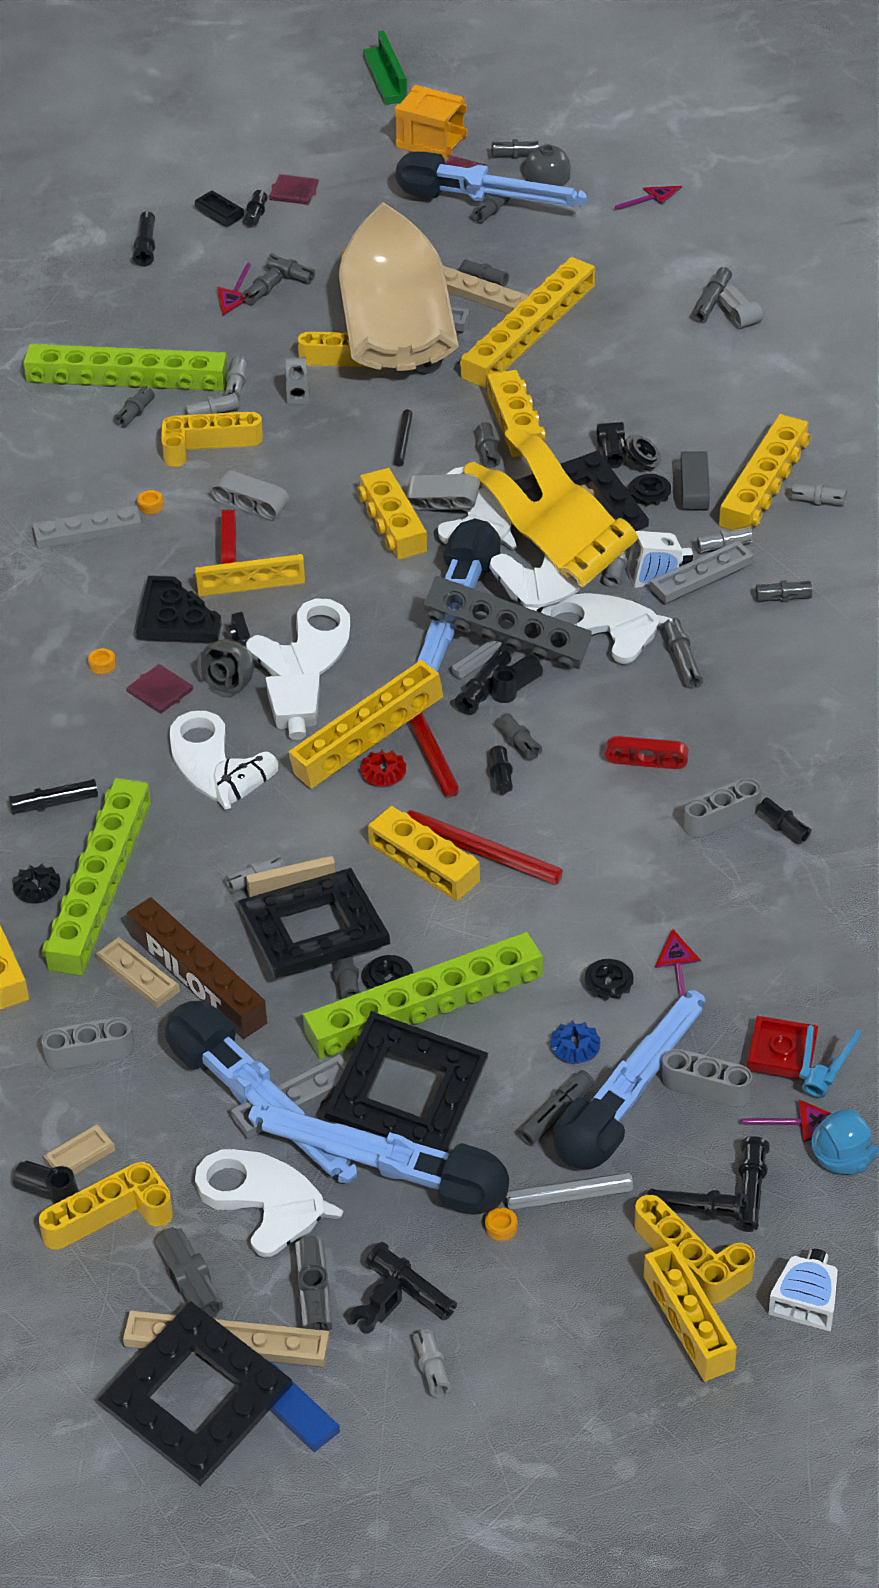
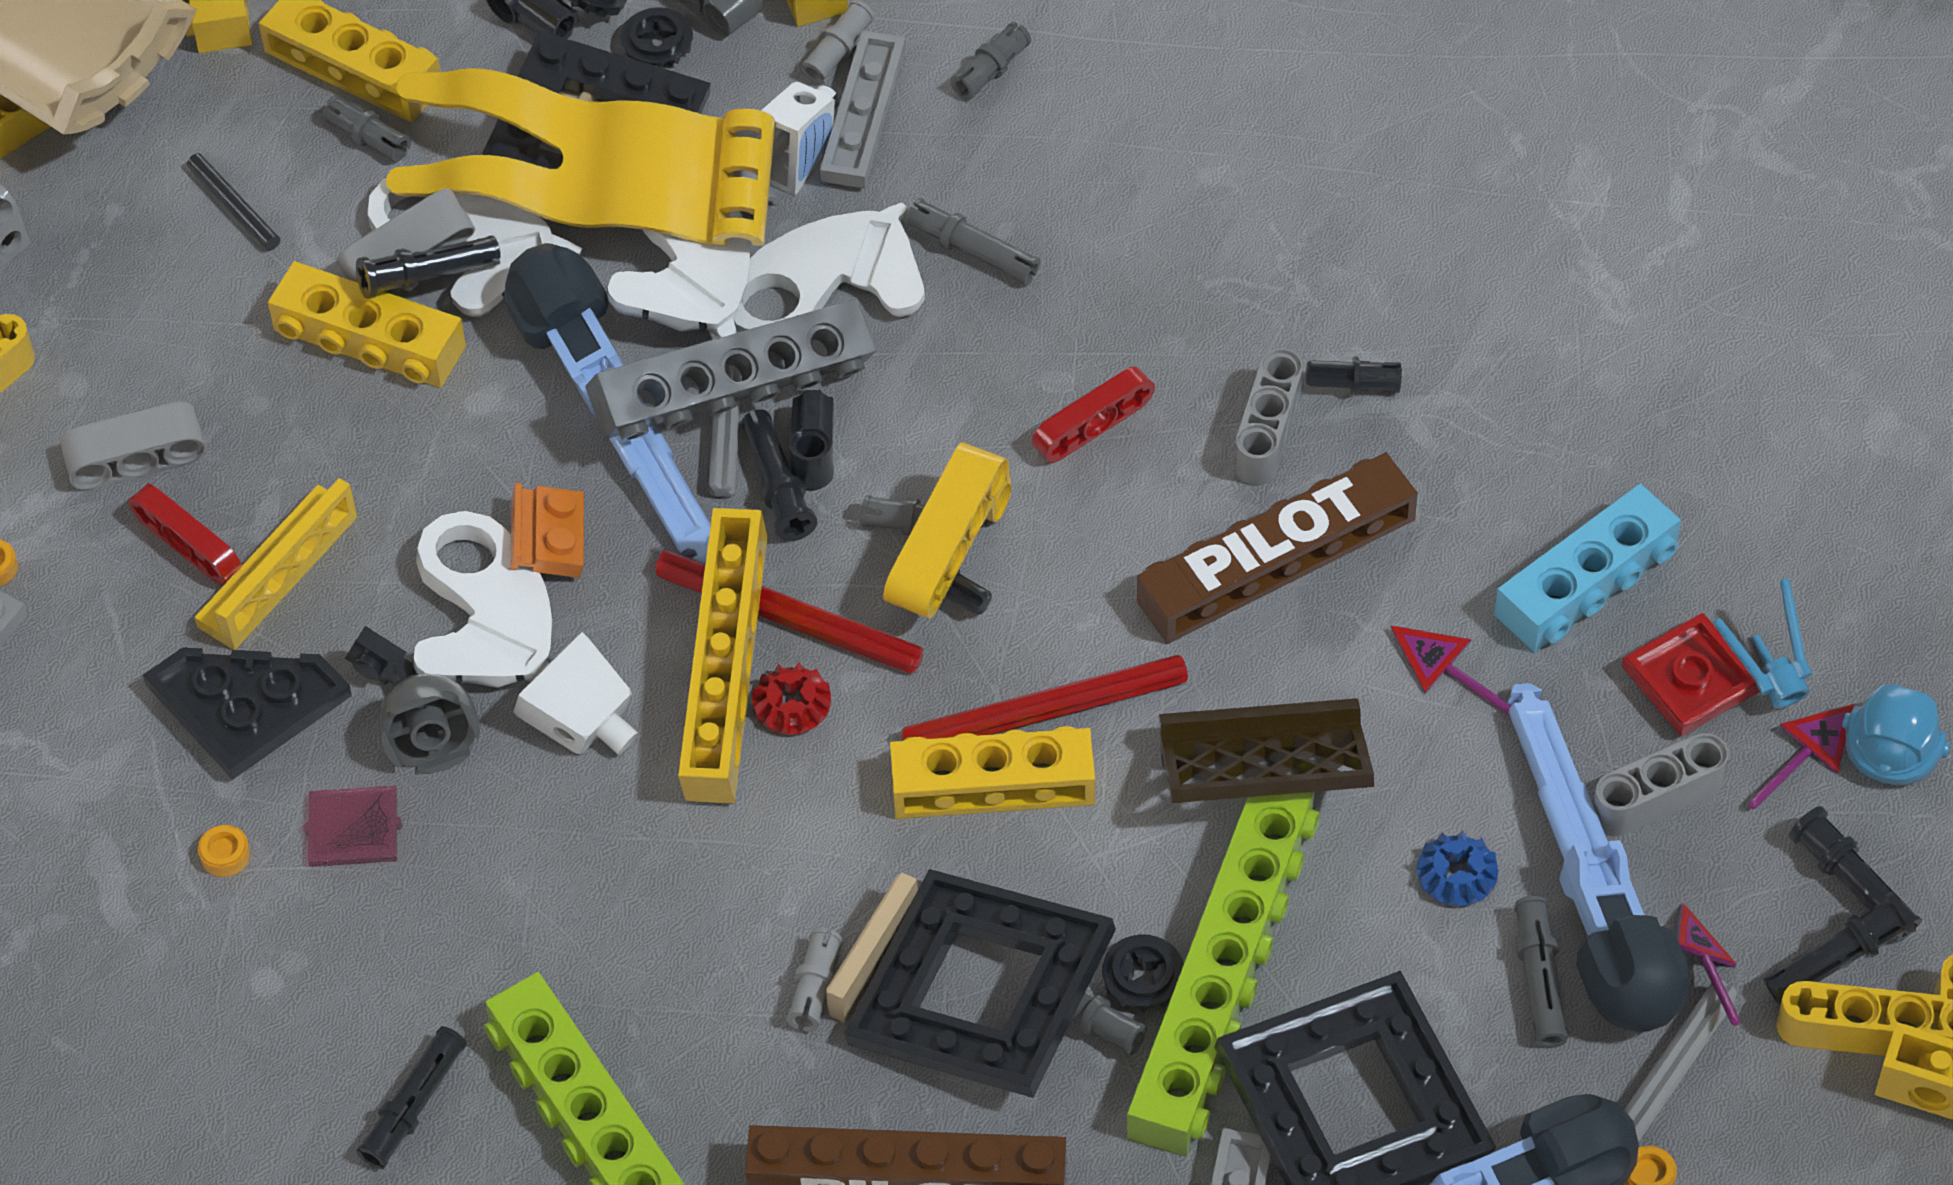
camera: 45 degrees left, 10 degrees up
(205, 762) = (550, 885): white animal -> none
(365, 635) = (547, 530): none -> orange plate
(426, 497) = (408, 268): none -> black pin
(518, 742) = (969, 491): none -> yellow beam
(536, 919) = (1271, 732): none -> dark brown fence
(620, 973) = (1403, 735): black gear -> none
(644, 1153) = (1697, 940): none -> magenta piece
(658, 859) = (1276, 547): none -> reddish brown brick
(789, 969) = (1633, 519): none -> medium azure brick

